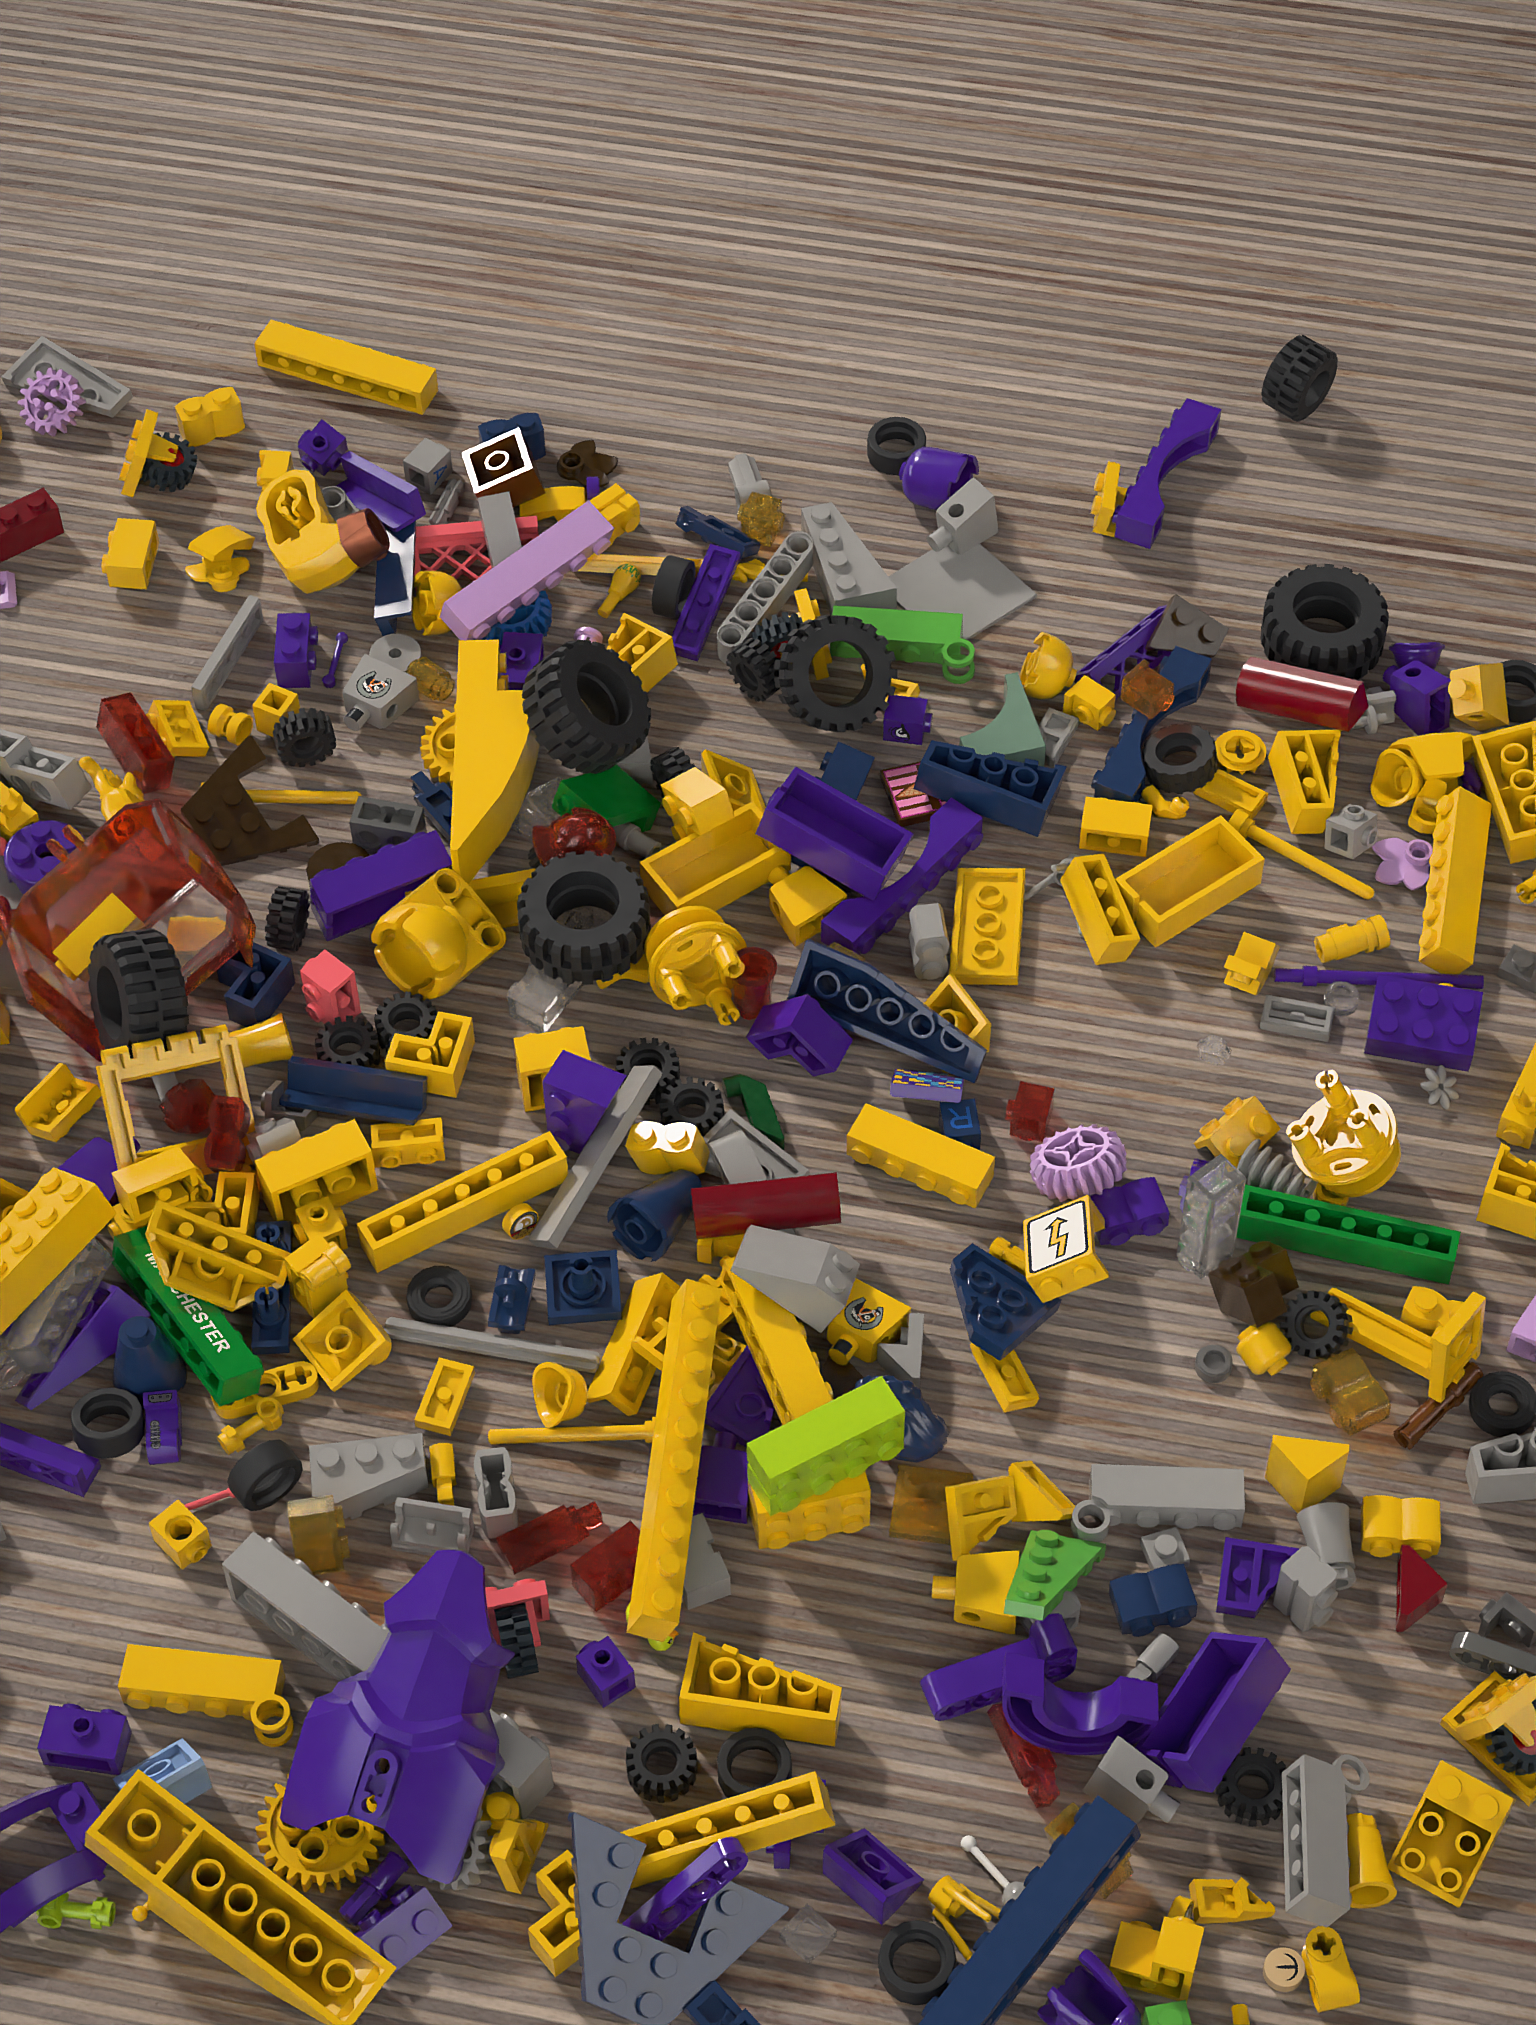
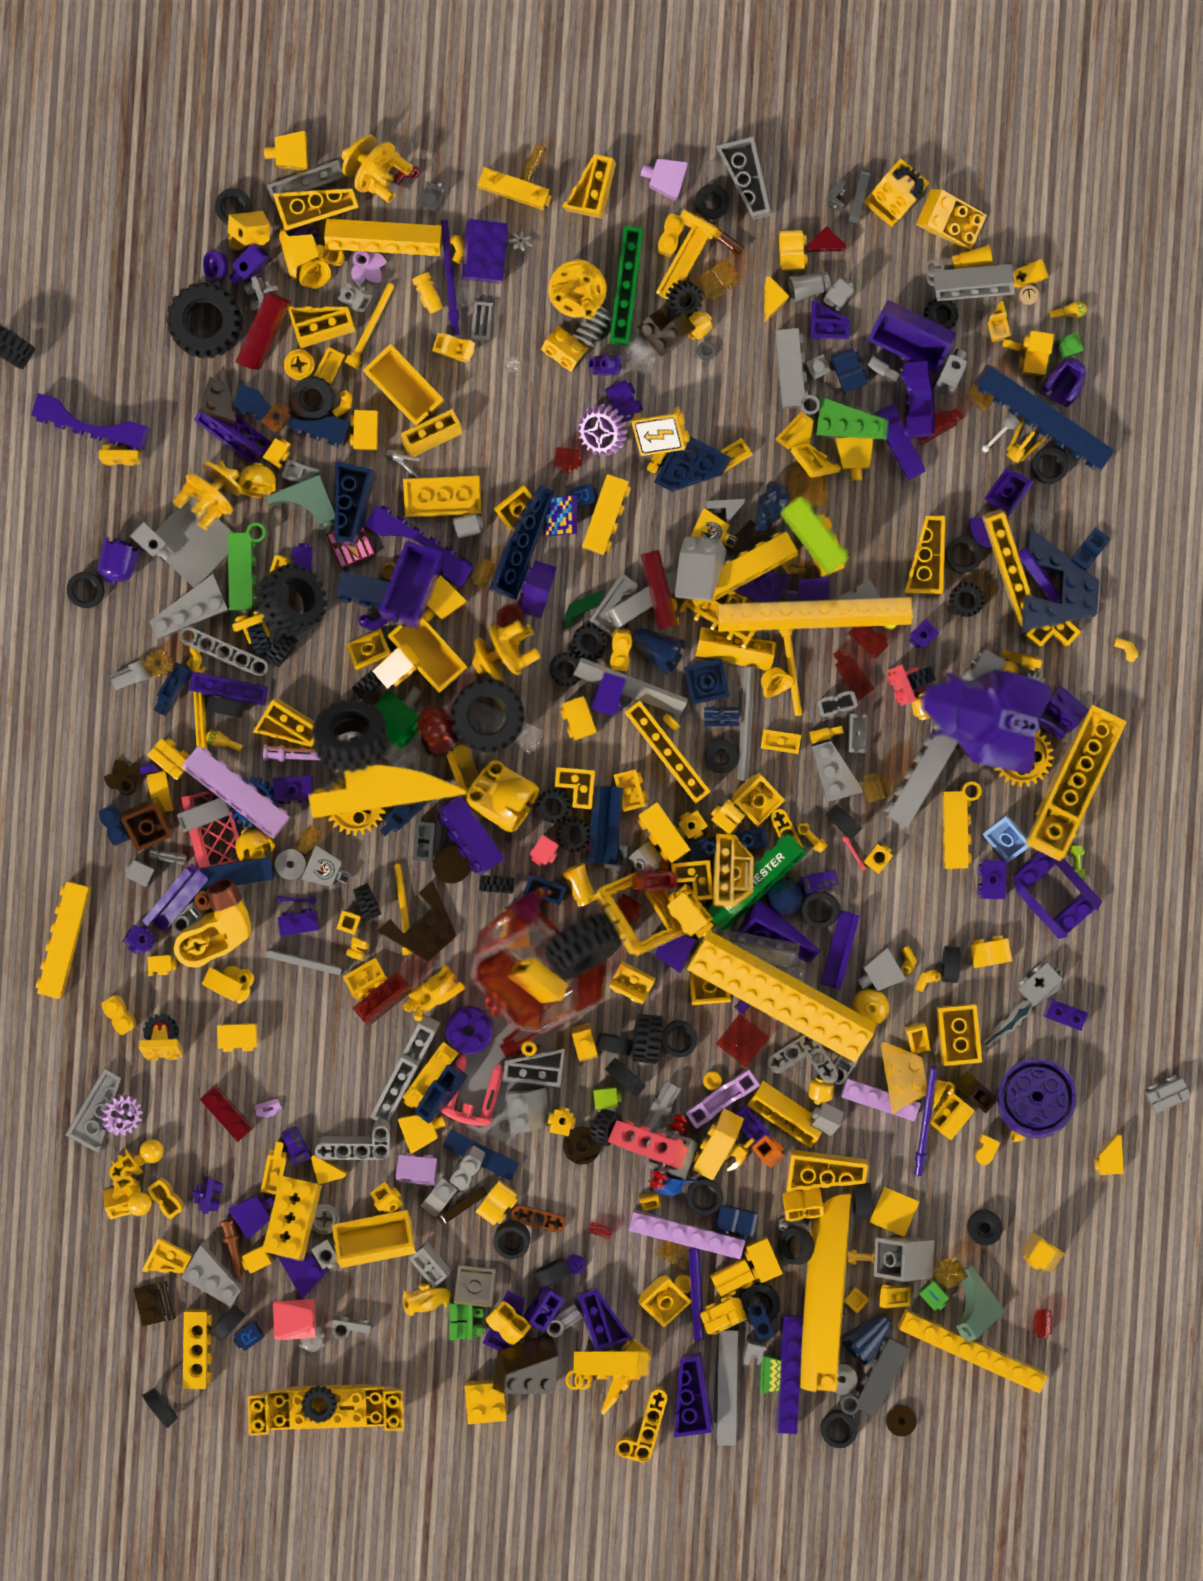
camera: 95 degrees left, 35 degrees up
(1029, 590) = (208, 494): none -> yellow piece

